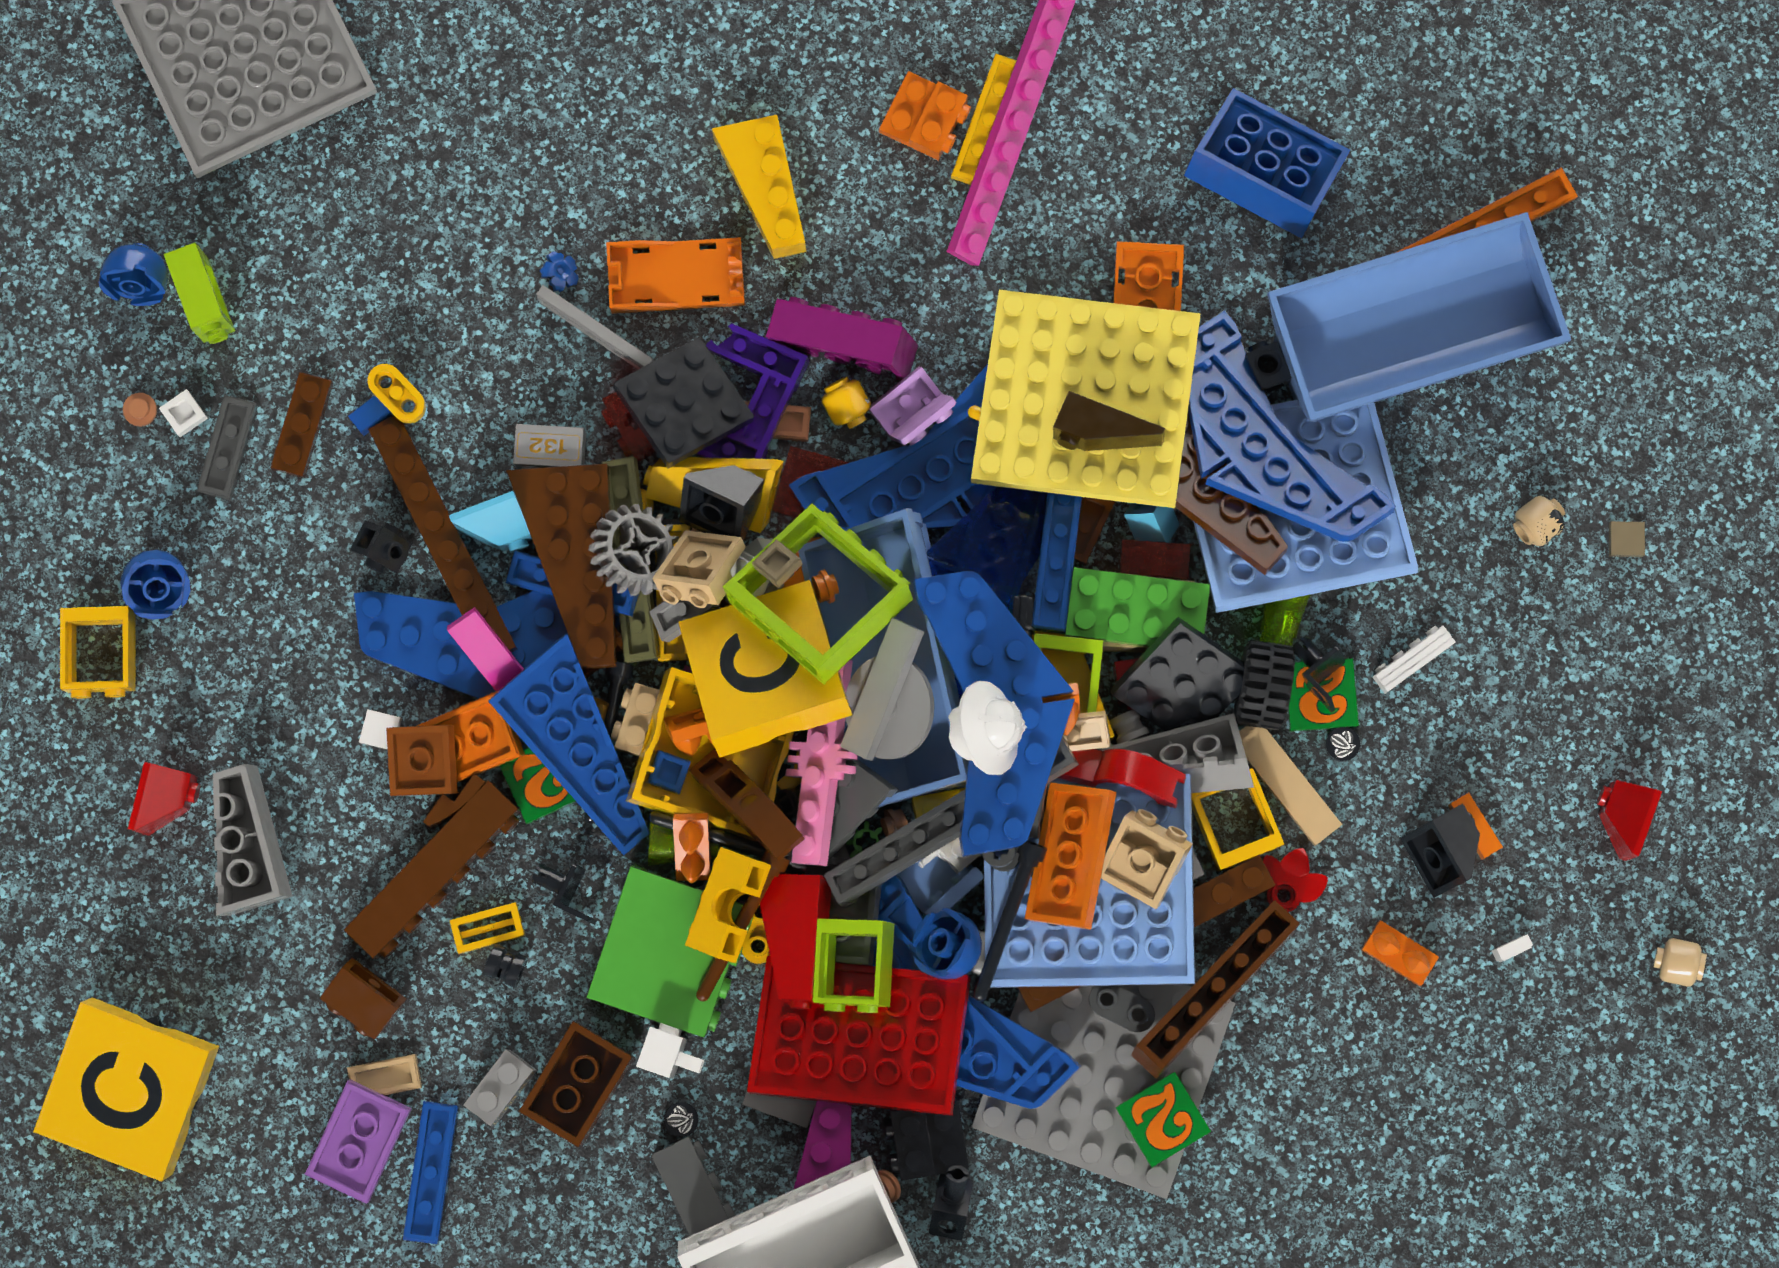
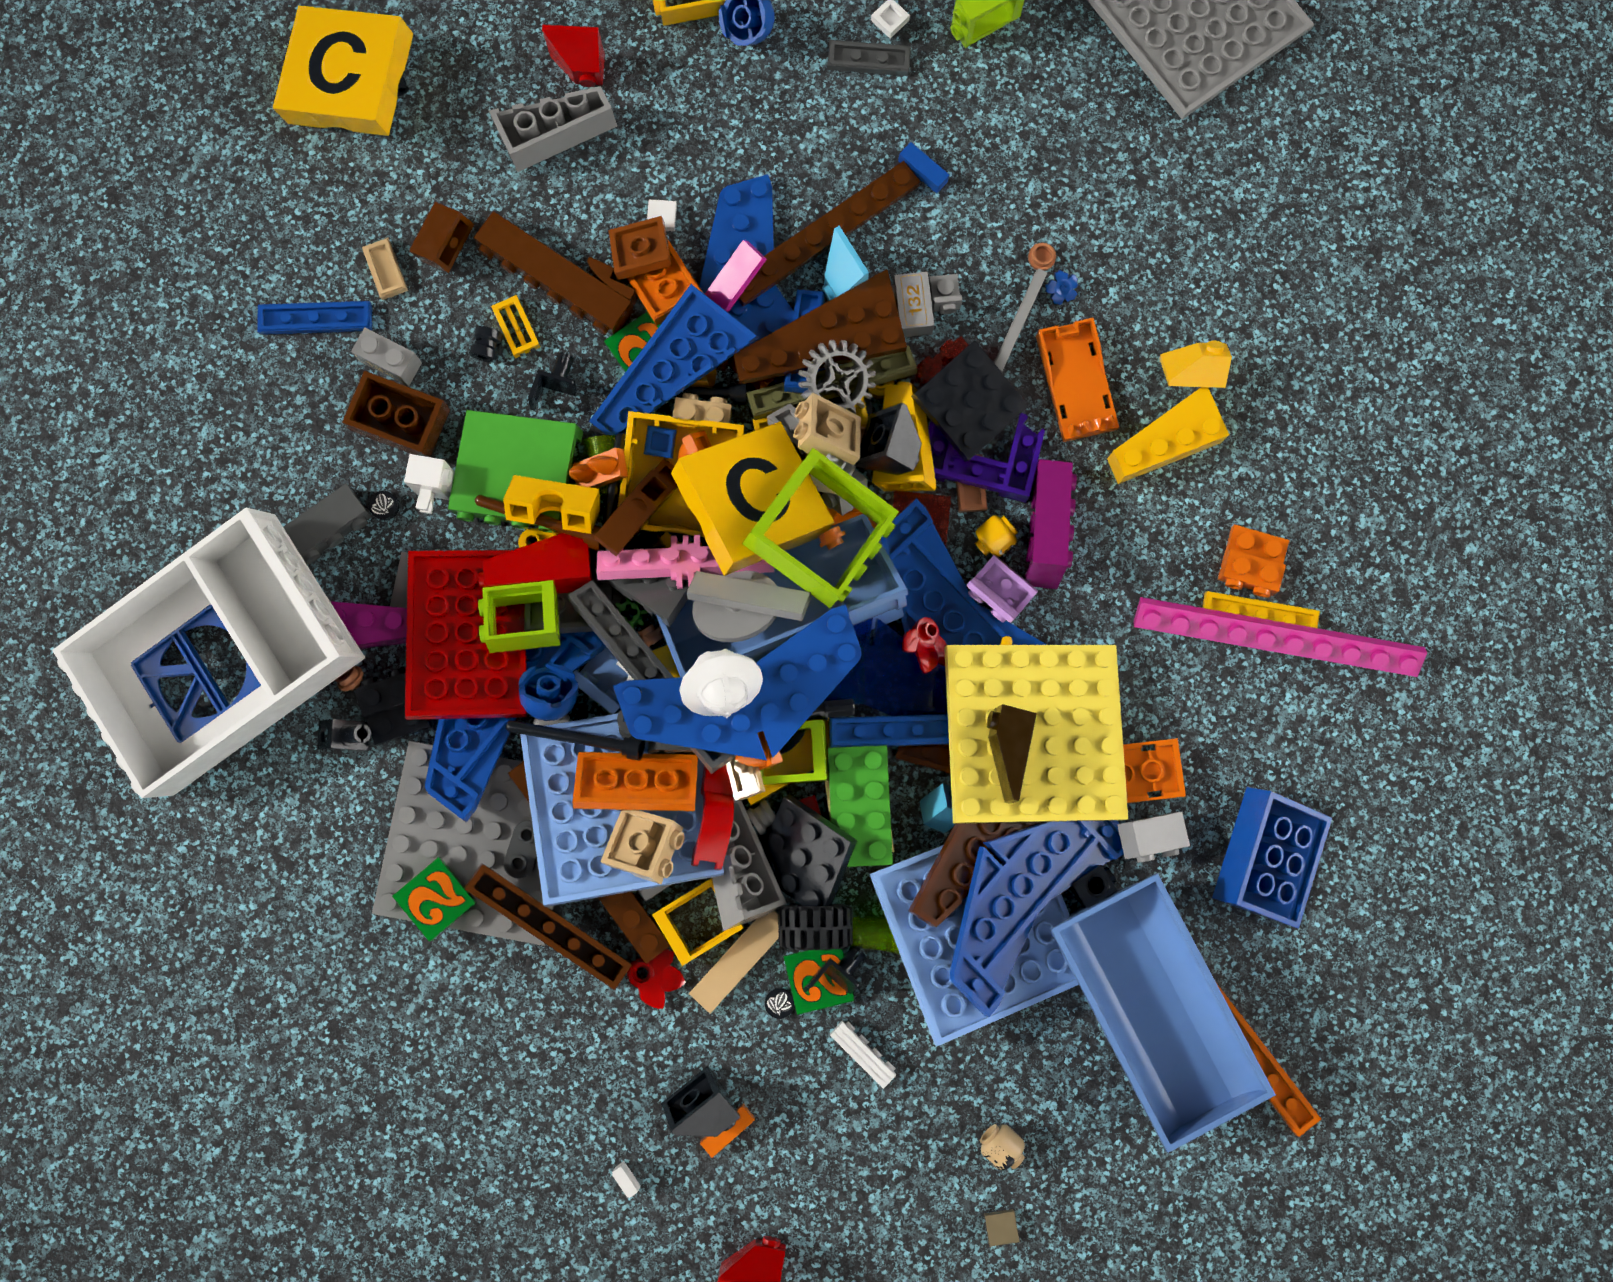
camera: 75 degrees right, 0 degrees up
(302, 425) = (897, 111): reddish brown plate -> none
(358, 1141) = (330, 256): medium lavender tile -> none
(381, 546) = (808, 186): black brick -> none
(397, 394) = (933, 174): yellow plate -> none
(517, 288) = (1042, 256): none -> nougat plate
(542, 408) = (945, 293): none -> light grey bracket
(689, 135) = (1197, 365): none -> yellow slope
(777, 563) = (840, 488): dark tan tile -> none
(963, 502) = (925, 643): none -> red plate
(1155, 559) = (907, 815): clear red brick -> none
(1223, 289) = (1153, 835): none -> light grey brick
(1400, 953) = (608, 1081): orange tile -> none

